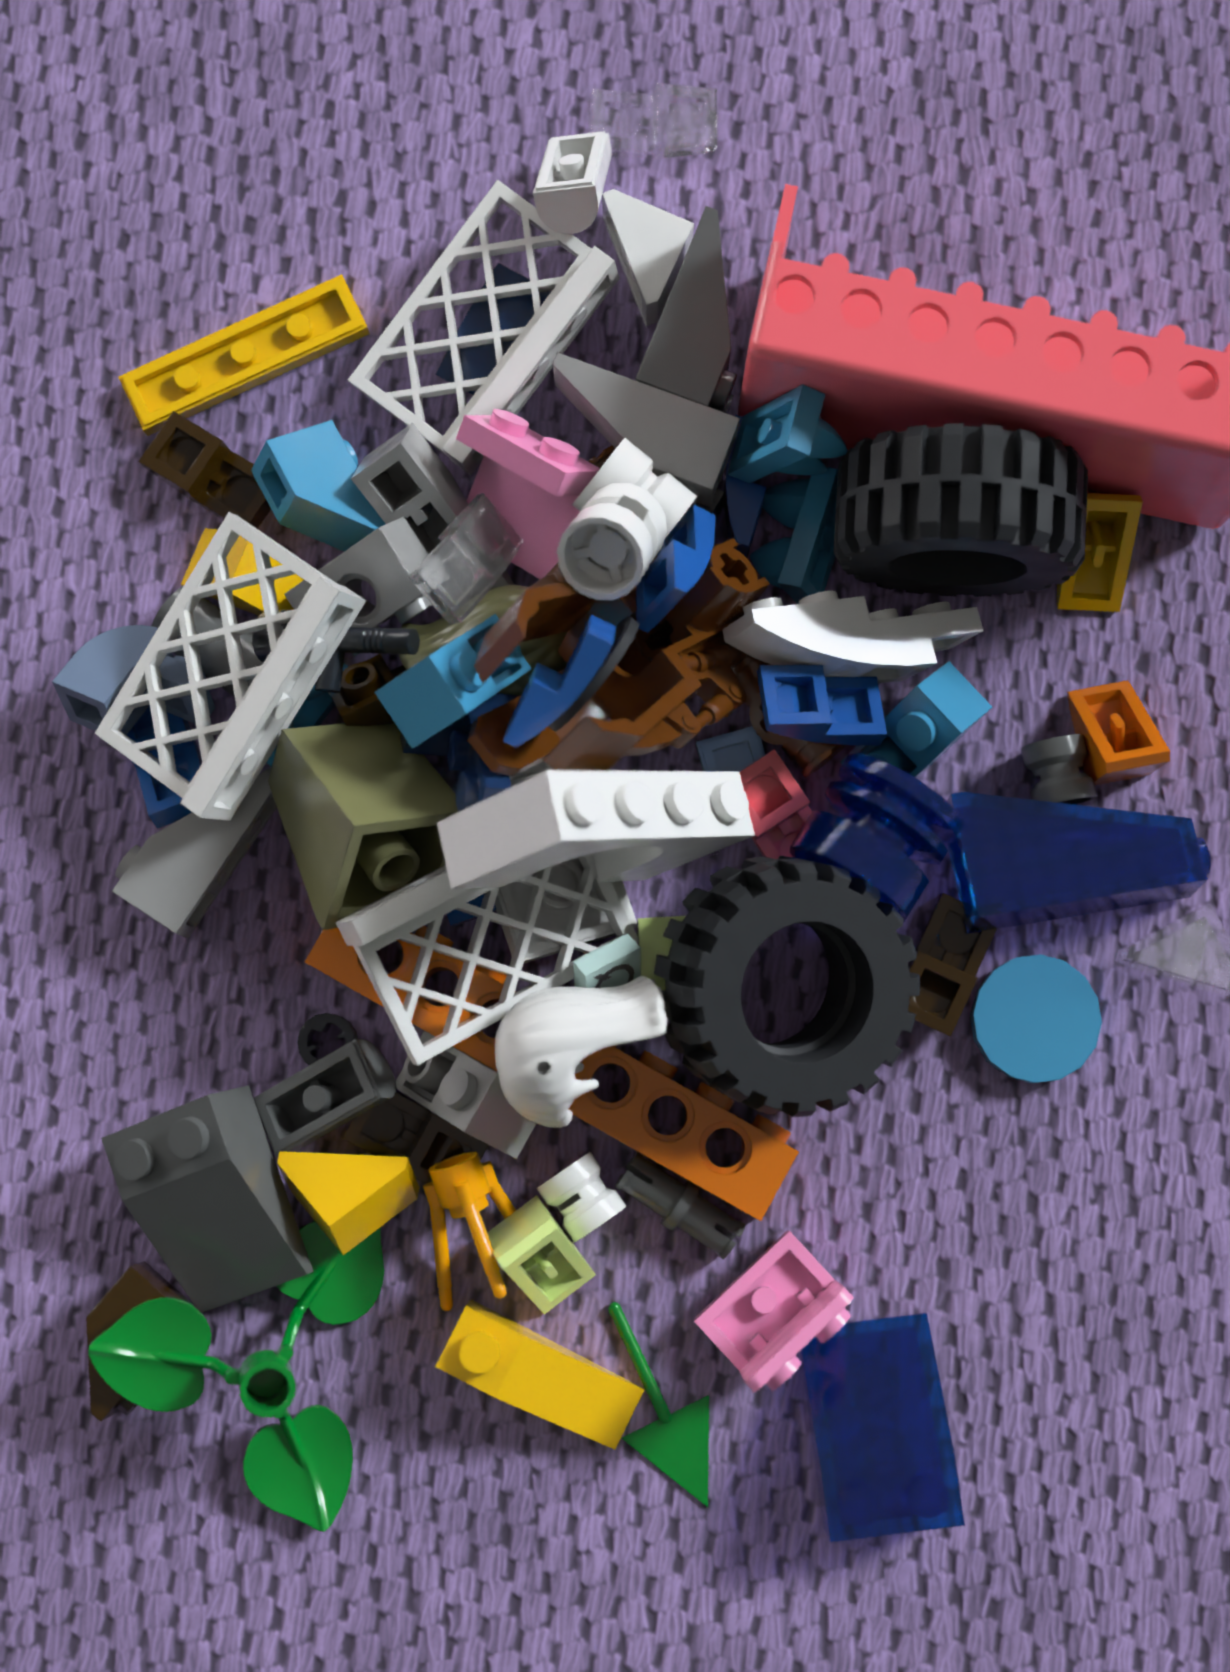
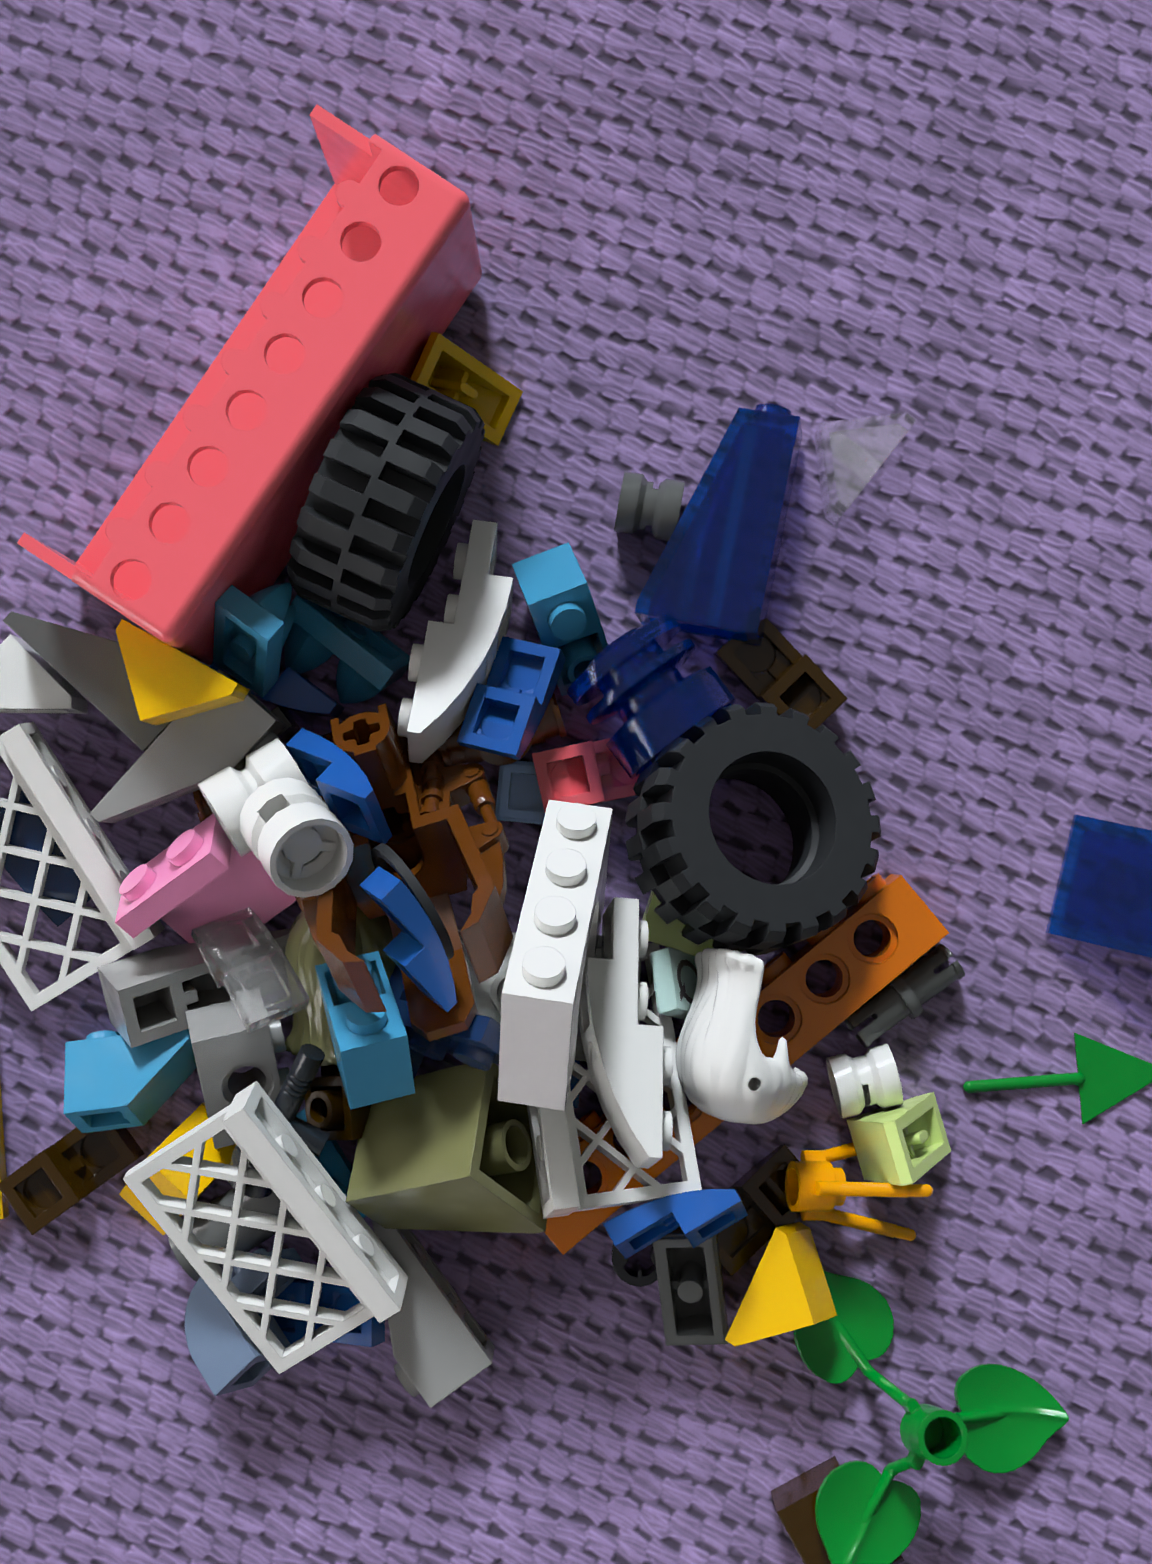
camera: 65 degrees left, 5 degrees up
(210, 1197) = (740, 1416): dark grey slope -> none
(395, 1067) = (697, 1212): none -> blue slope
(467, 1097) = (744, 1153): light grey slope -> none
(522, 936) = (621, 1056): none -> white slope
(538, 1375) = (1003, 1180): yellow slope -> none
(709, 375) = (168, 681): none -> yellow slope
(775, 1313) = (1034, 949): bright pink bracket -> none
(1036, 1018) = (858, 615): dark azure tile -> none
(1116, 732) = (631, 440): orange slope -> none

